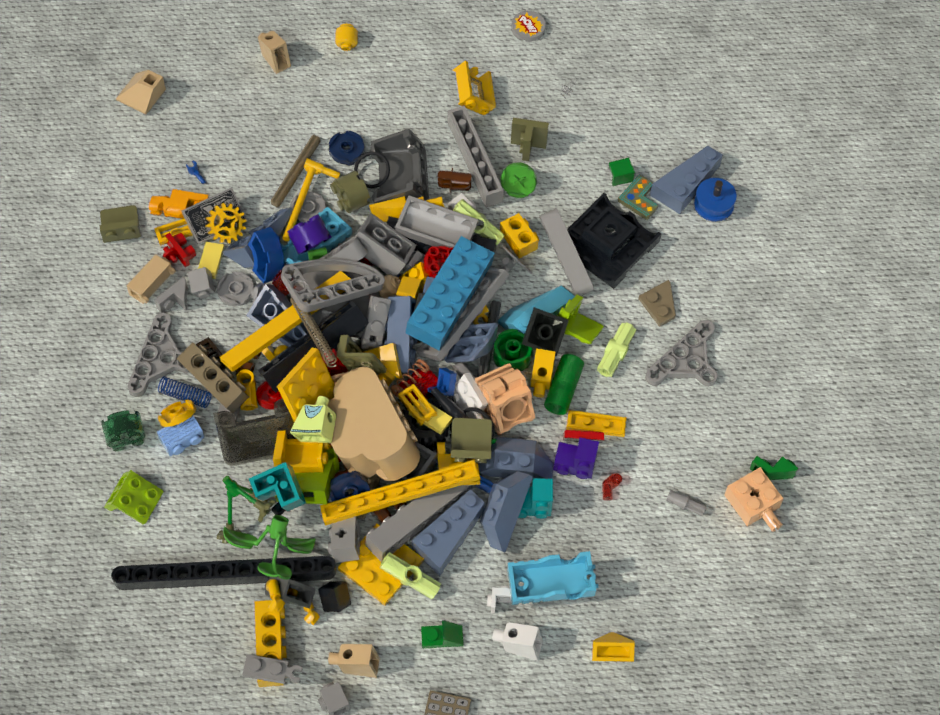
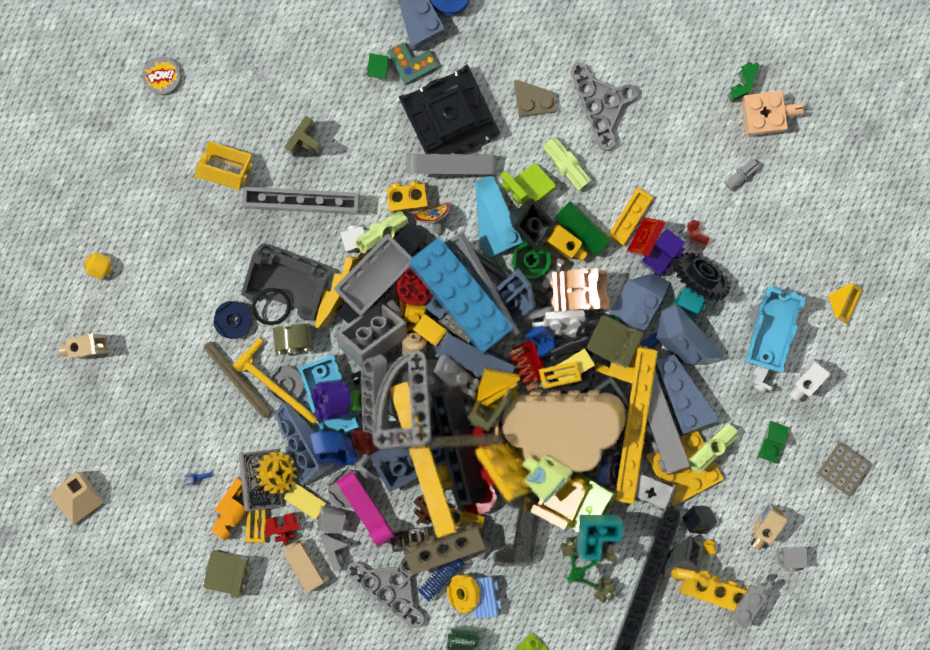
camera: 65 degrees left, 25 degrees up
(223, 304) = (365, 509): none -> dark pink beam
(277, 530) = (641, 533): bright green plant -> none
(454, 180) = (318, 230): reddish brown arm -> none
(518, 180) = (347, 170): bright green tile -> none
(570, 496) = (702, 276): none -> black gear

